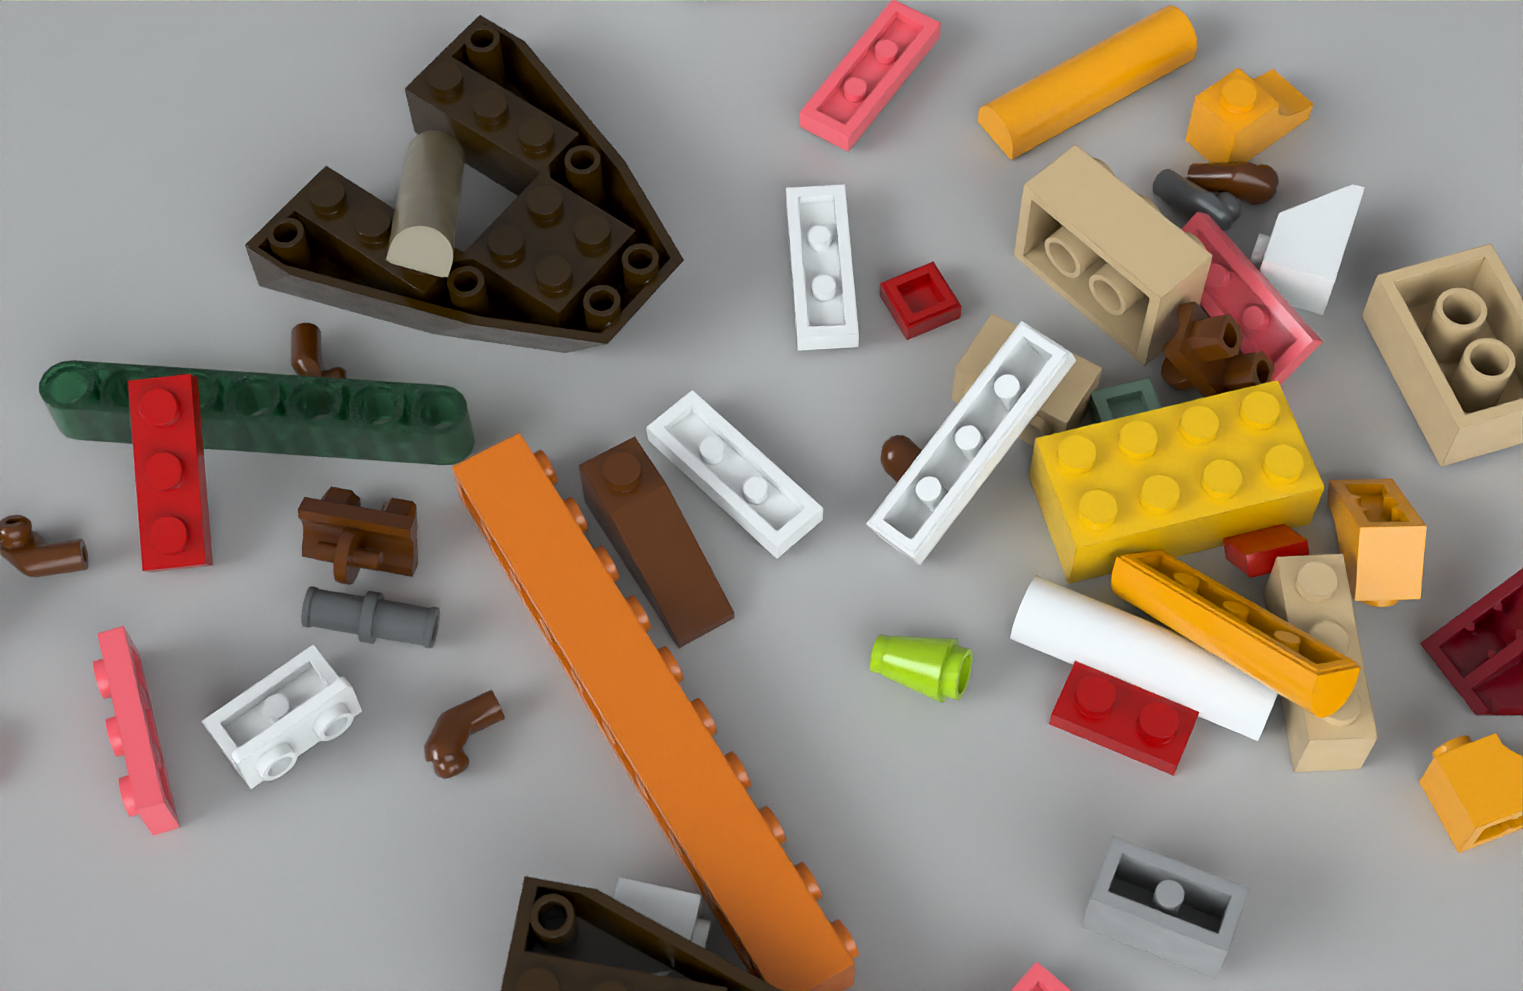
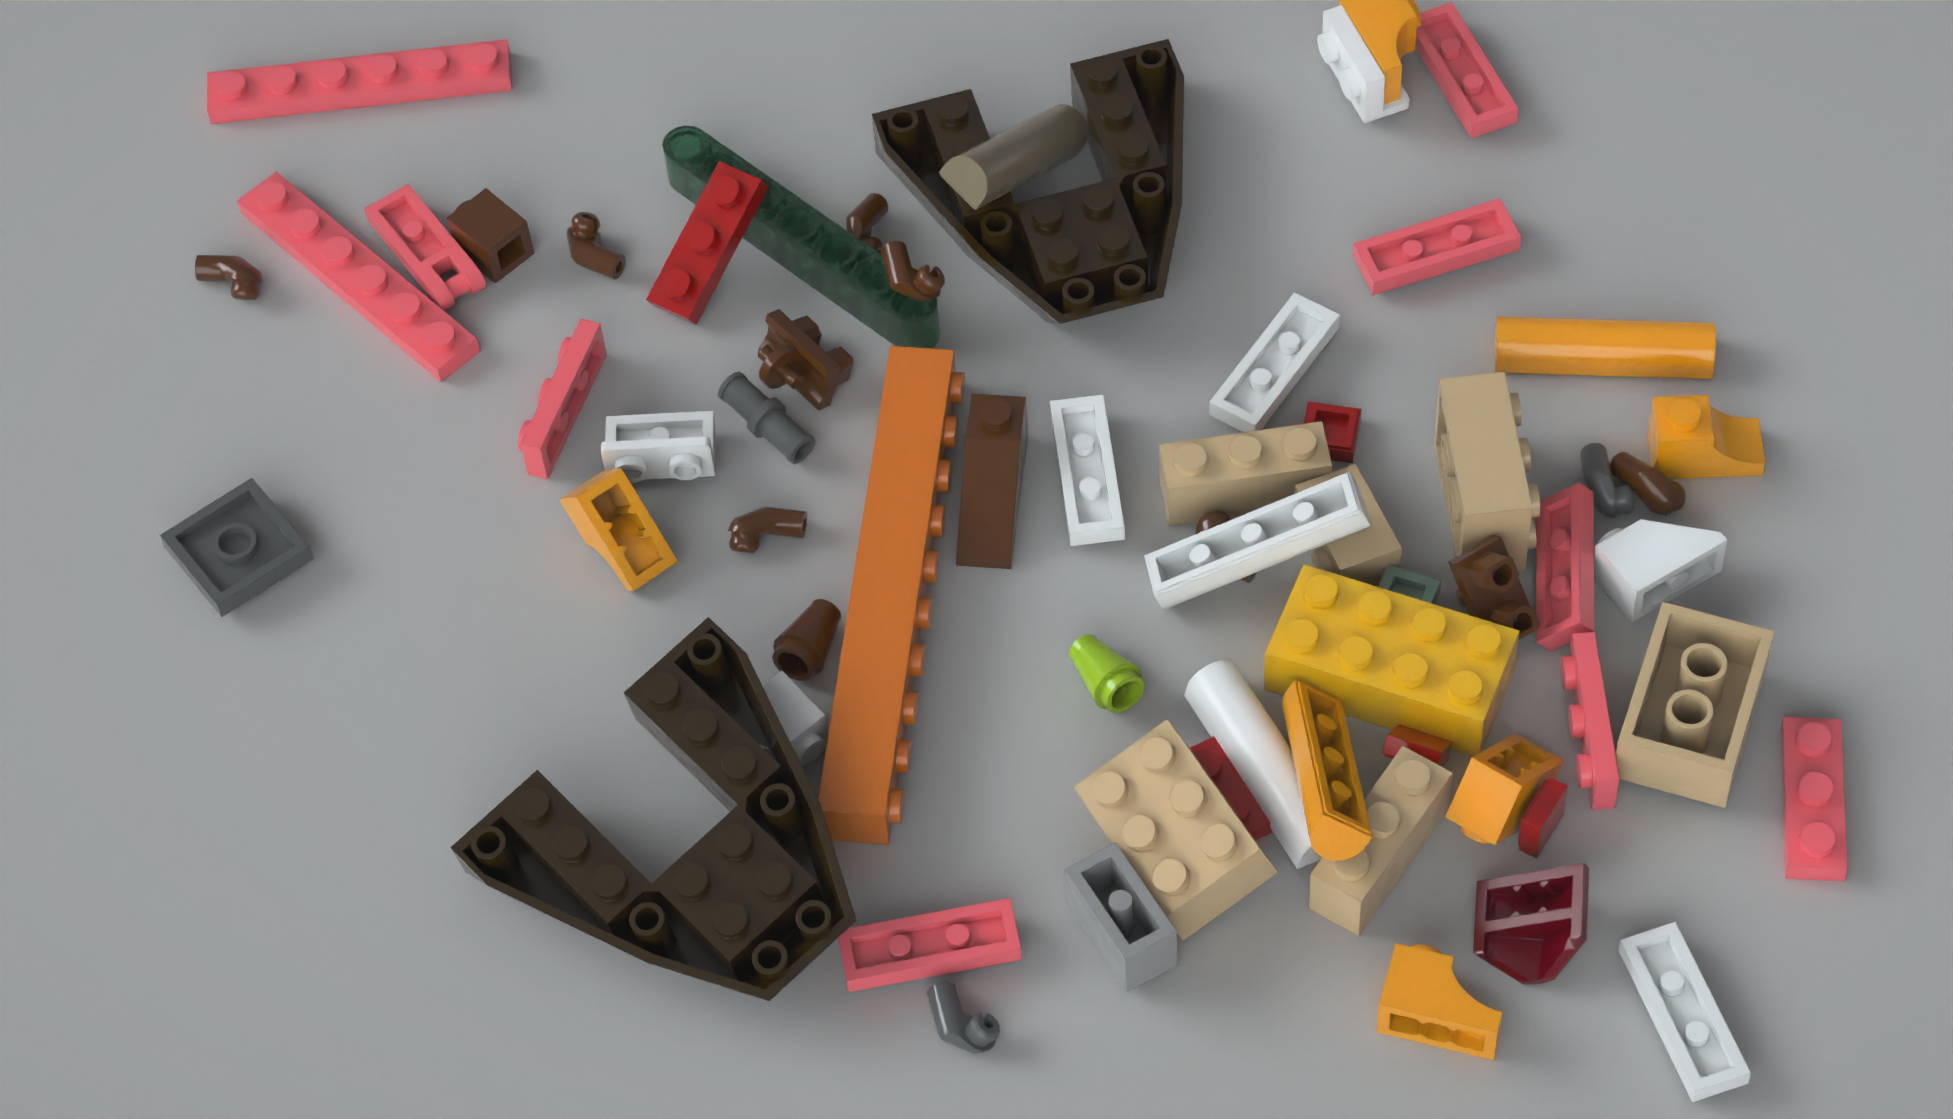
camera: 40 degrees right, 5 degrees down
(310, 832) = (619, 527): none -> light orange arch
(419, 390) = (905, 279): none -> reddish brown arm
(605, 825) = (807, 641): none -> reddish brown cone
(886, 386) = (1239, 470): none -> tan brick
(1138, 776) = (1175, 829): none -> tan brick
(1389, 425) = (1590, 721): none -> coral plate
(1439, 546) = (1542, 817): none -> red tile

